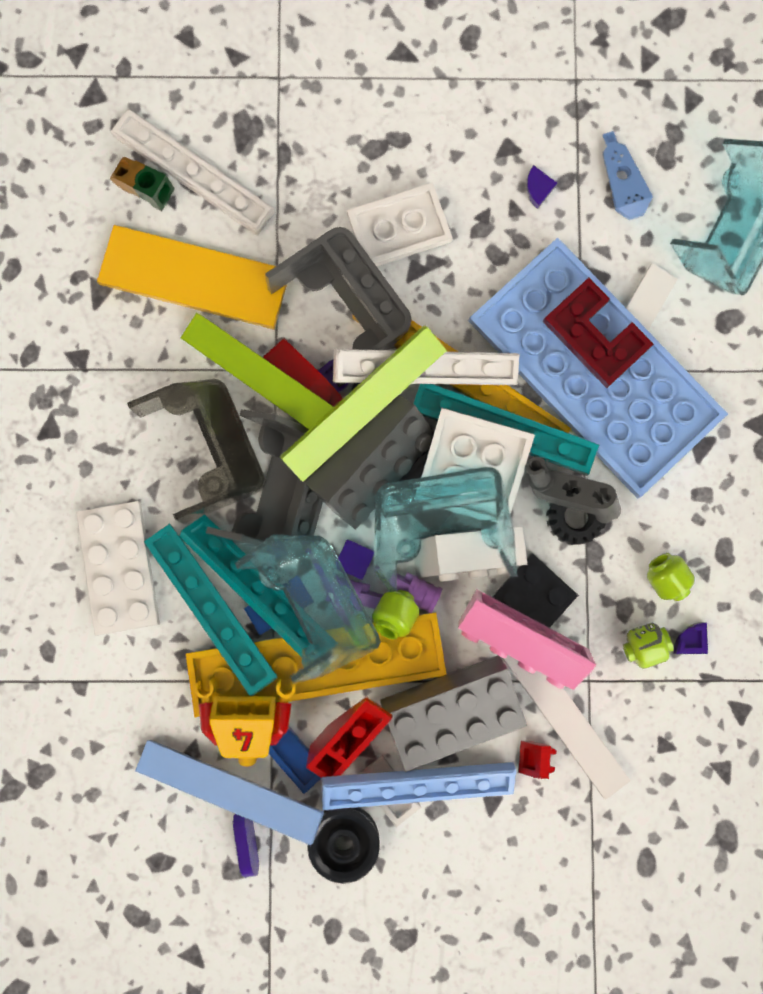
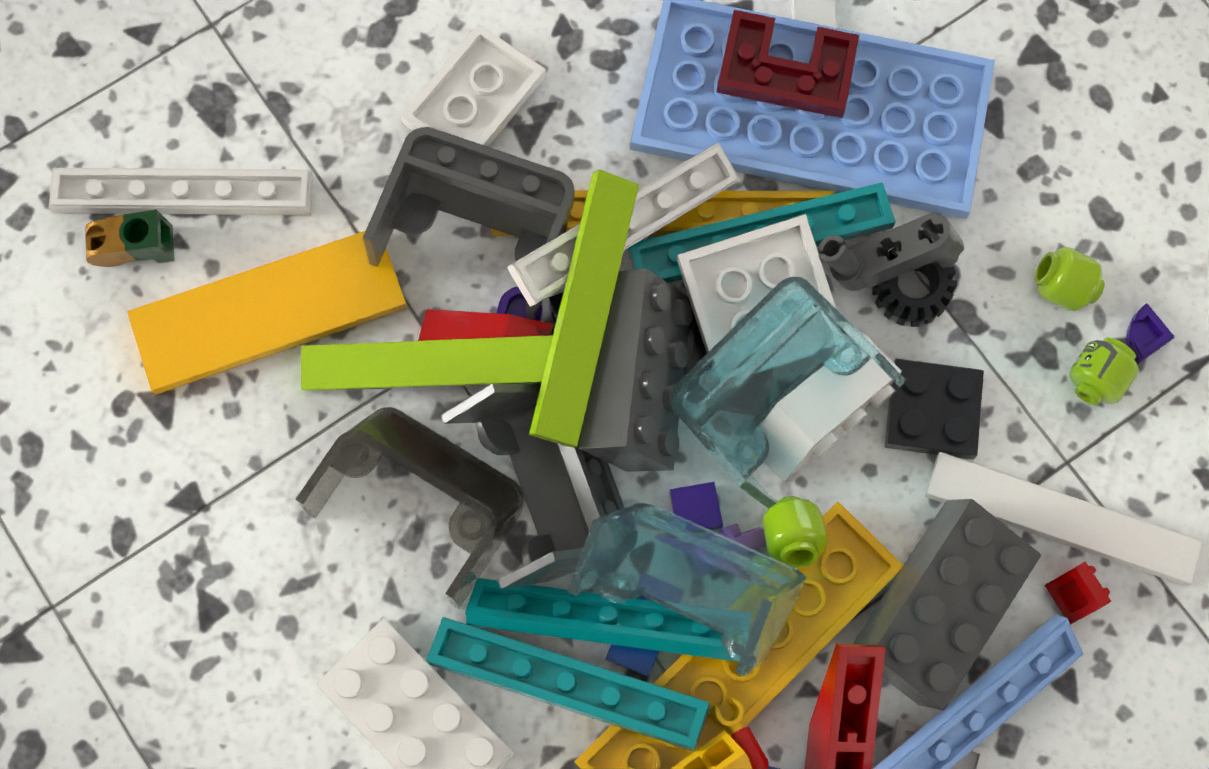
camera: 30 degrees left, 10 degrees down
(424, 593) = (809, 486): medium lavender hinge -> none
(526, 641) = (967, 457): bright pink slope -> none

